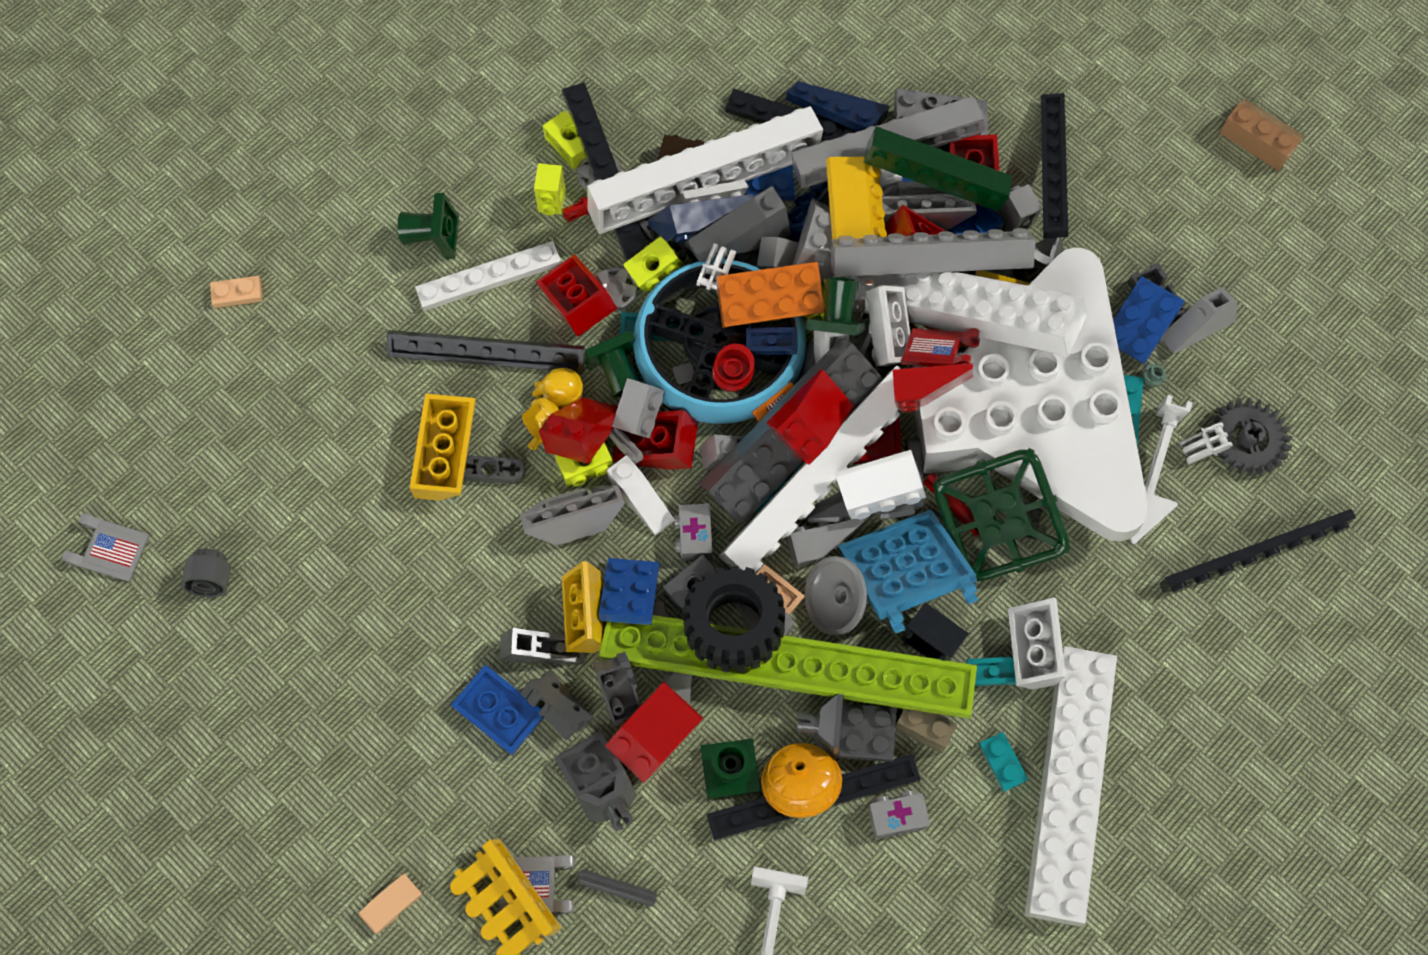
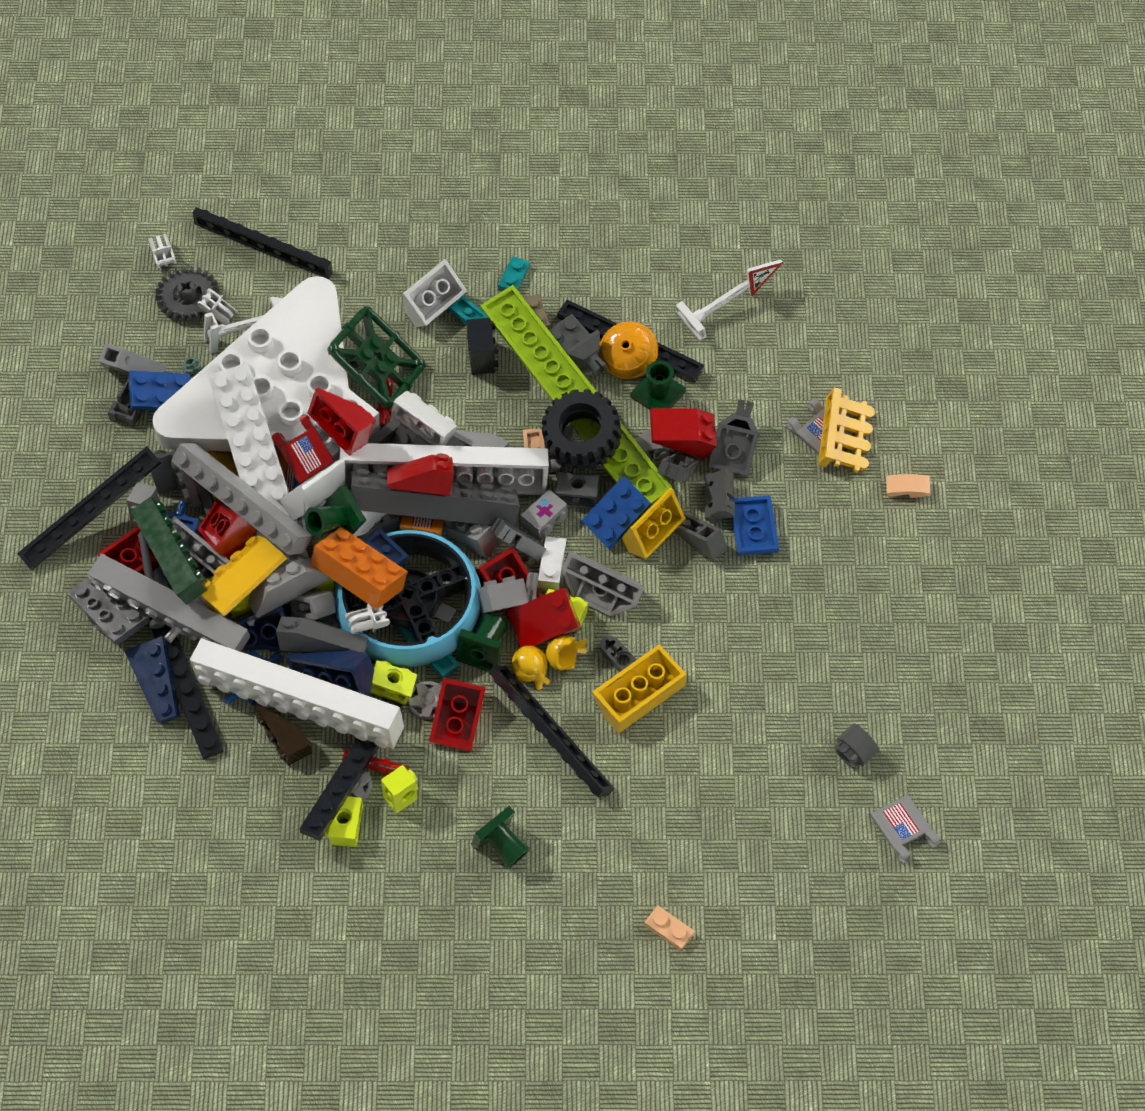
camera: 135 degrees left, 10 degrees down
(488, 276) = (496, 782): white plate -> none
(617, 888) = (778, 392): dark grey axle -> none
(679, 478) = (521, 540): none -> dark grey piece
(733, 367) = (425, 556): red piece -> none
(835, 595) = (509, 407): light grey dish -> none
(898, 815) = (597, 295): light grey brick -> none
(909, 566) = (457, 381): dark azure plate -> none
(1071, 789) = (499, 230): white brick -> none
(1328, 452) = (163, 254): none -> white arm

